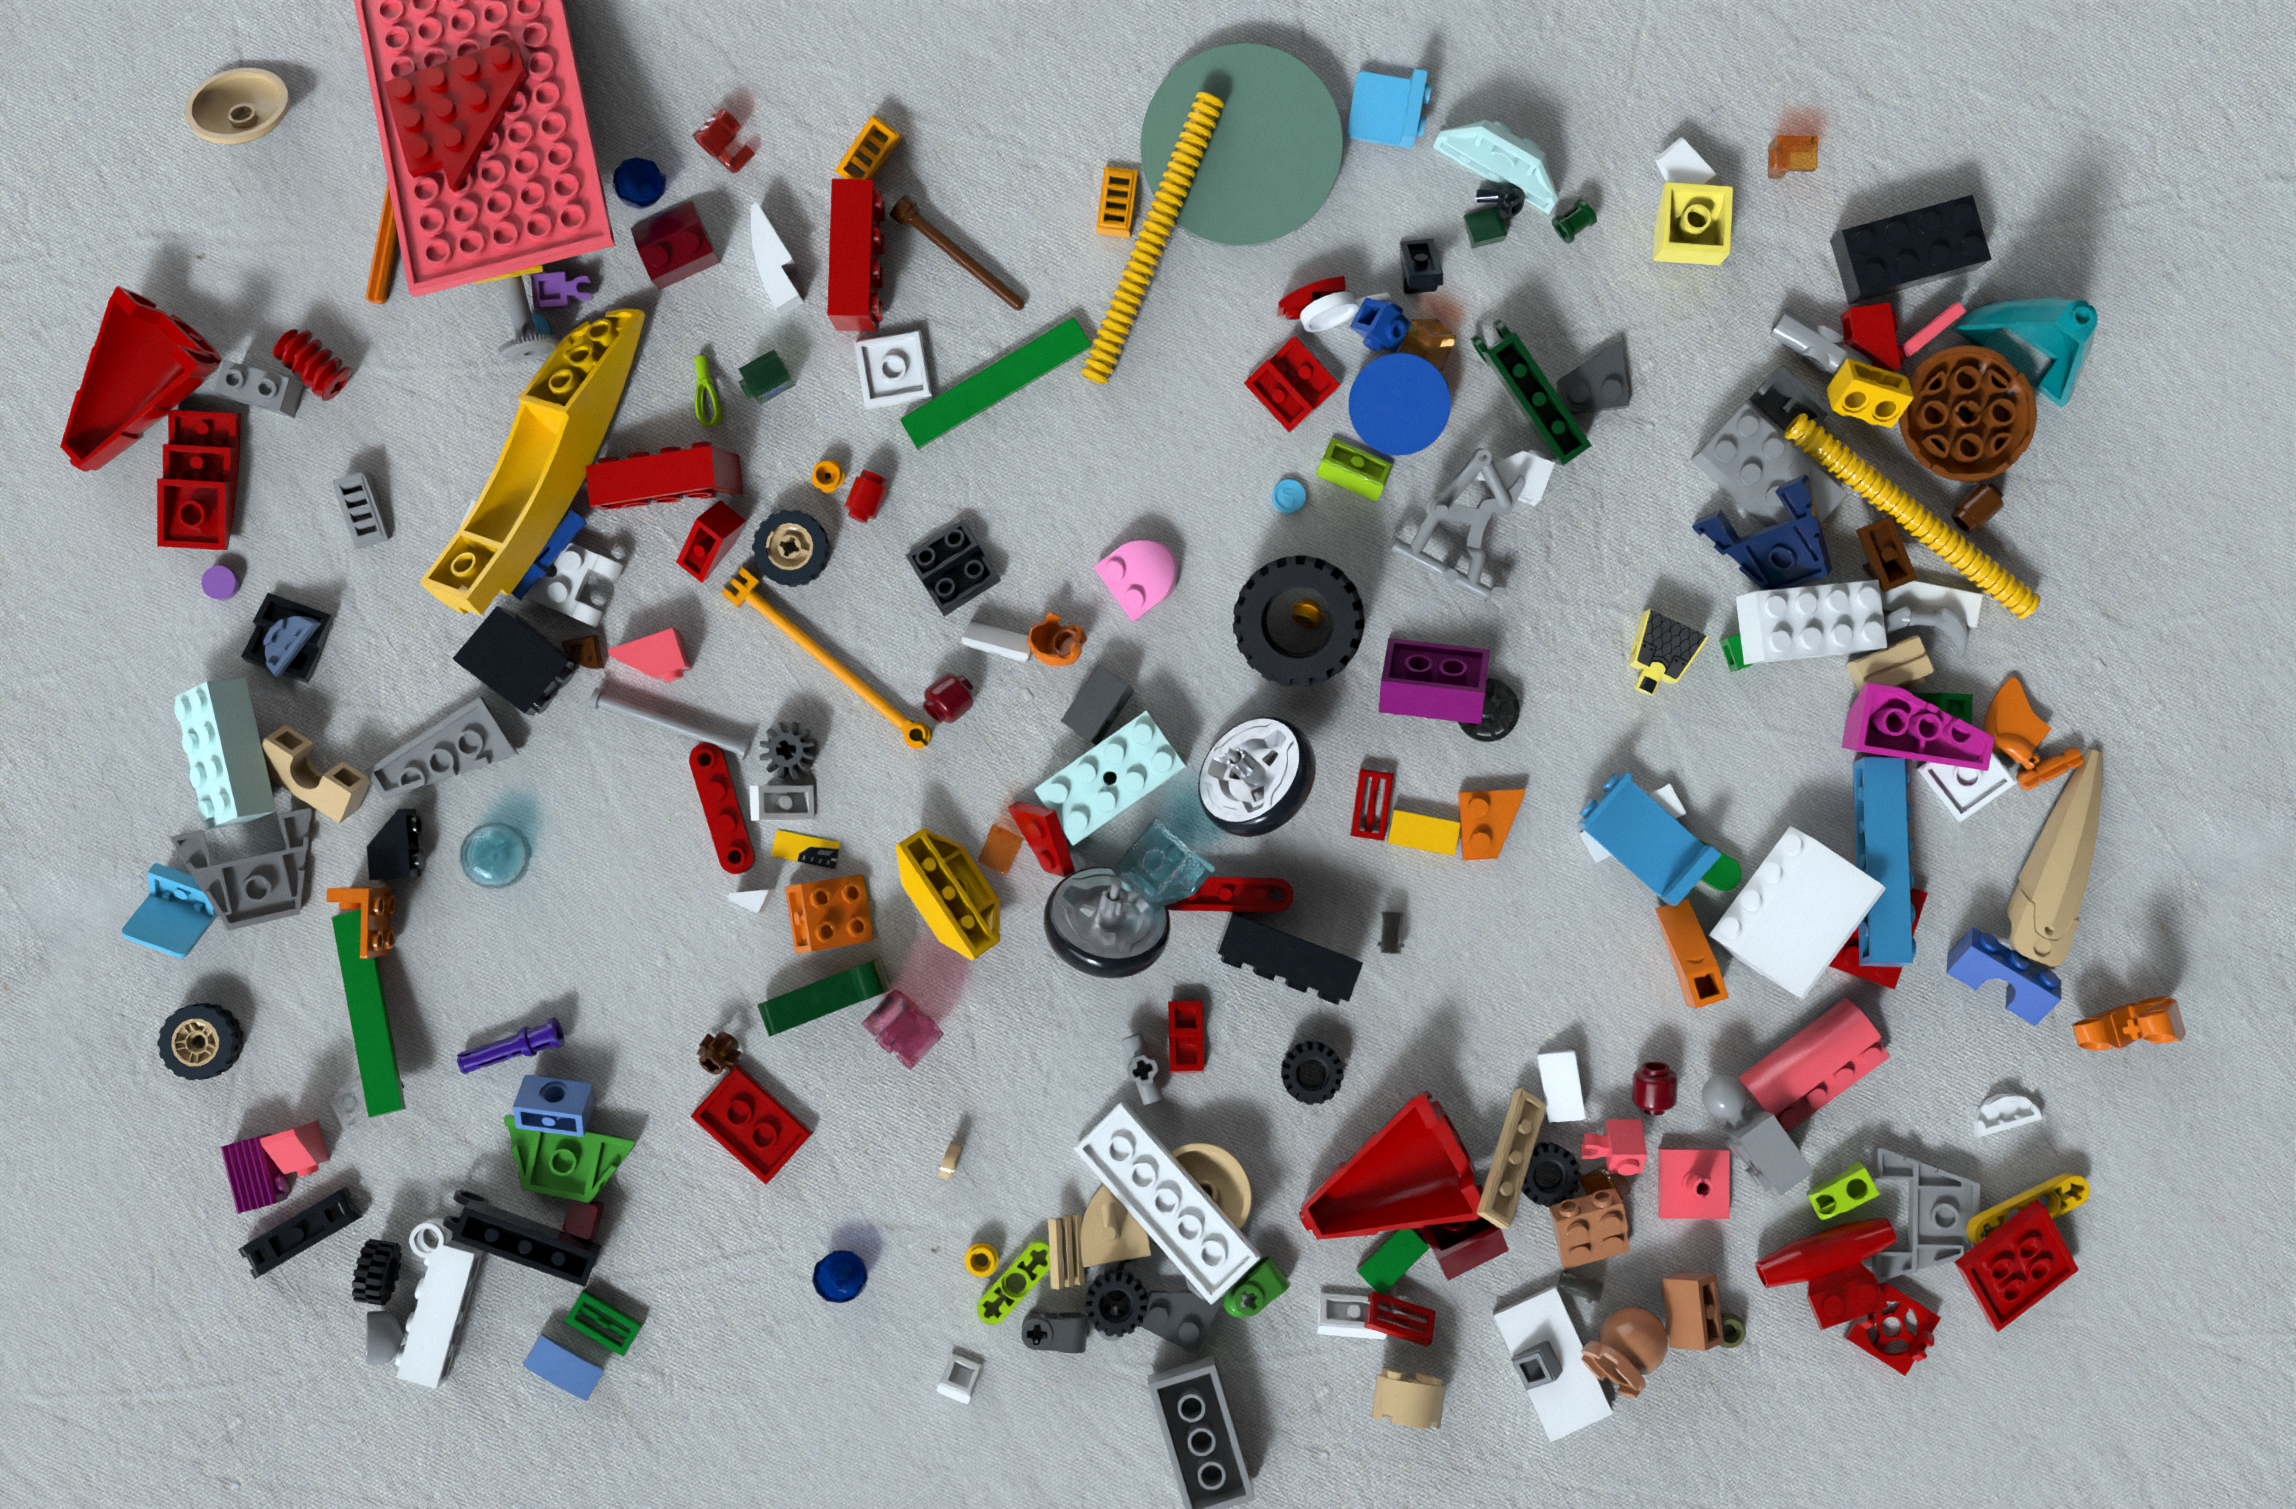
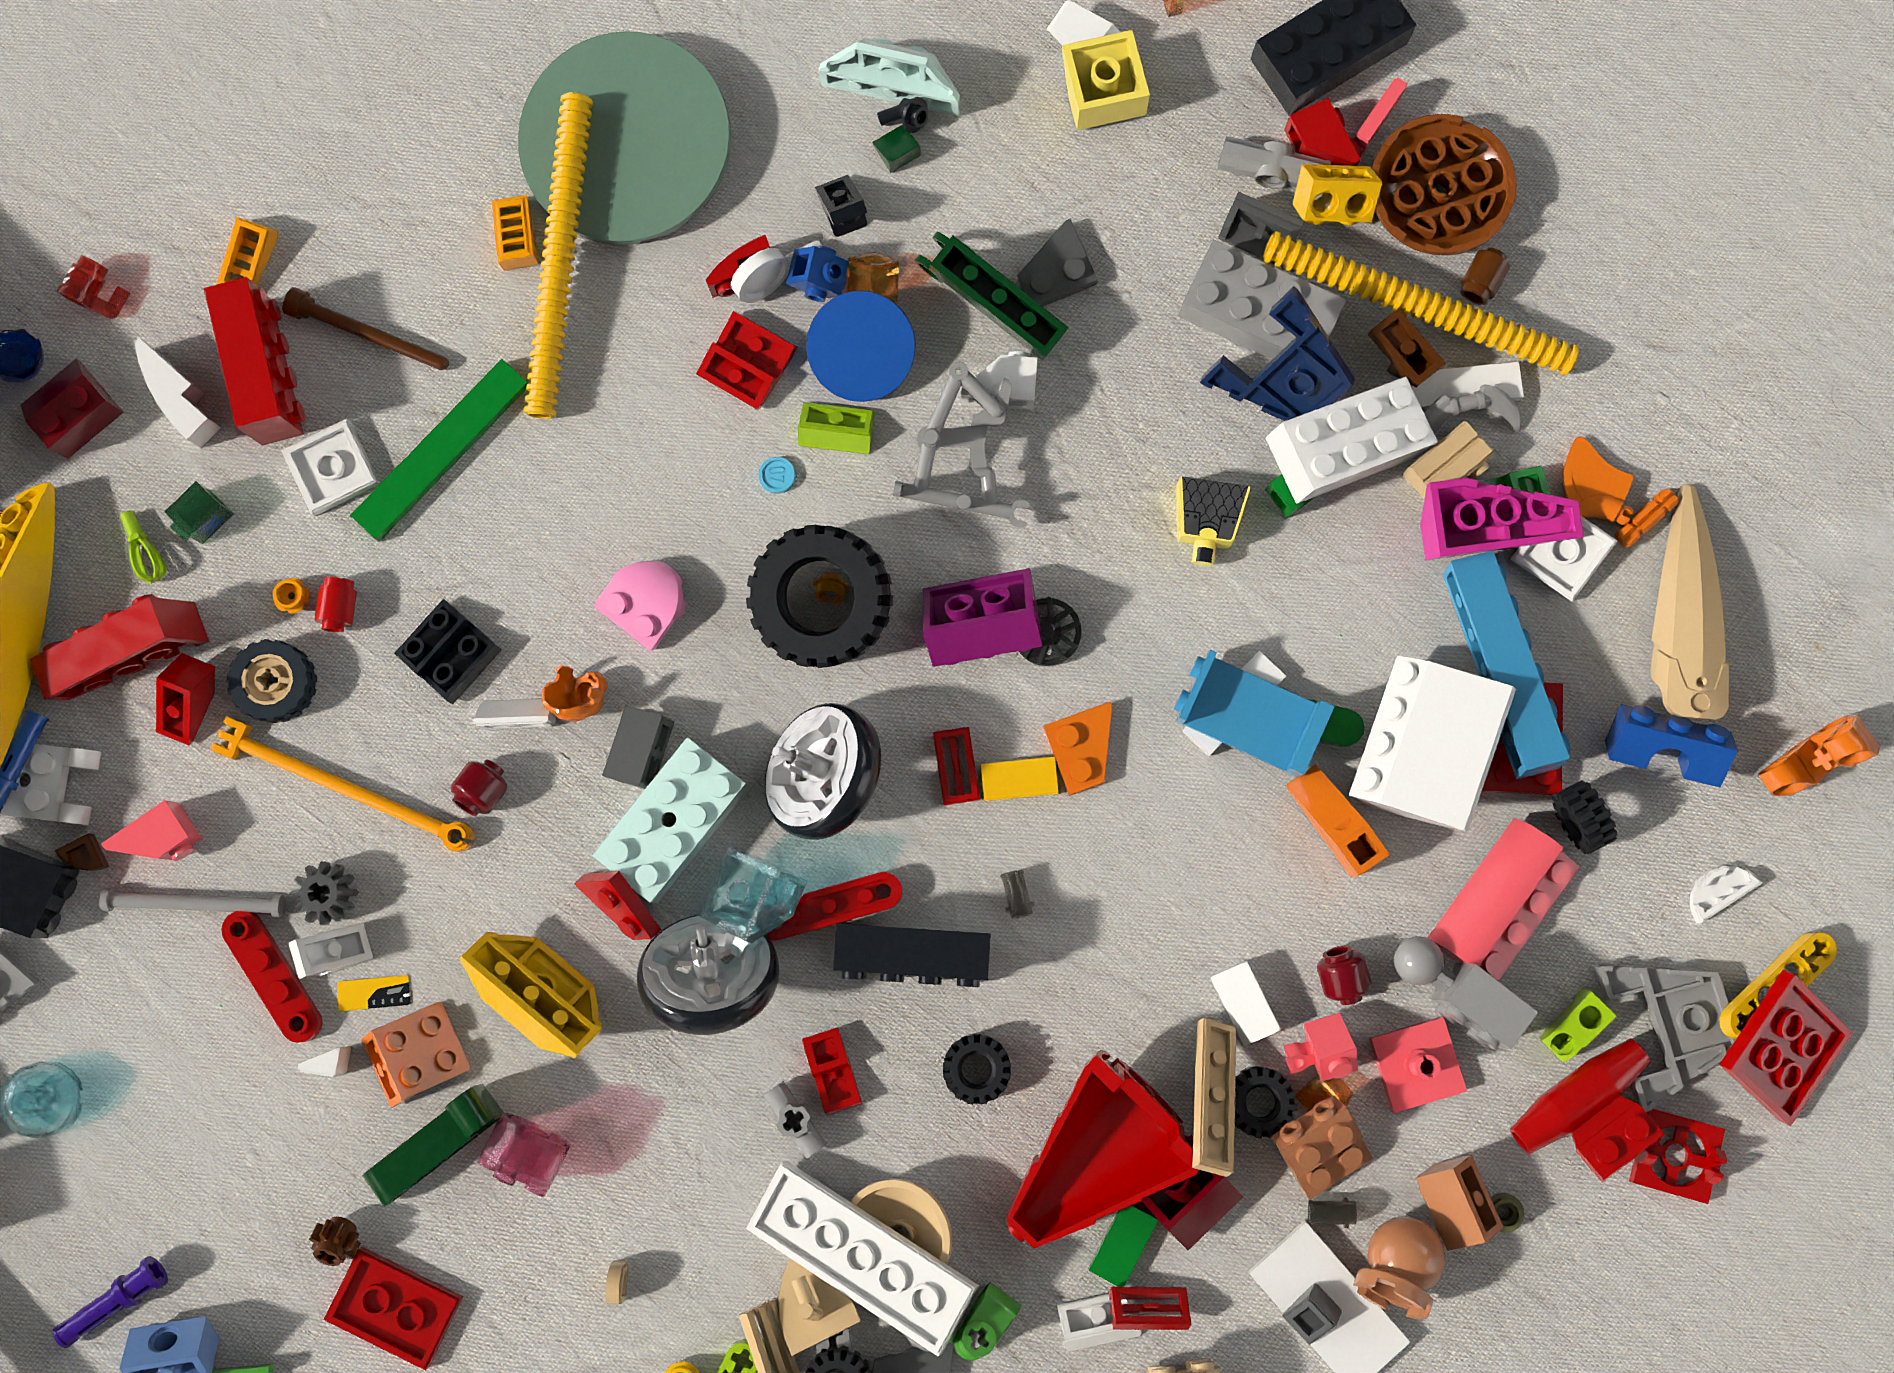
camera: 10 degrees left, 5 degrees down
(1001, 849) = (579, 930): clear orange panel -> none
(1388, 108) = (763, 58): medium azure bracket -> none
(1574, 221) = (985, 113): dark green bush -> none
(1908, 1016) = (1584, 817): none -> black tyre
(2053, 325) = (1496, 69): teal cone -> none

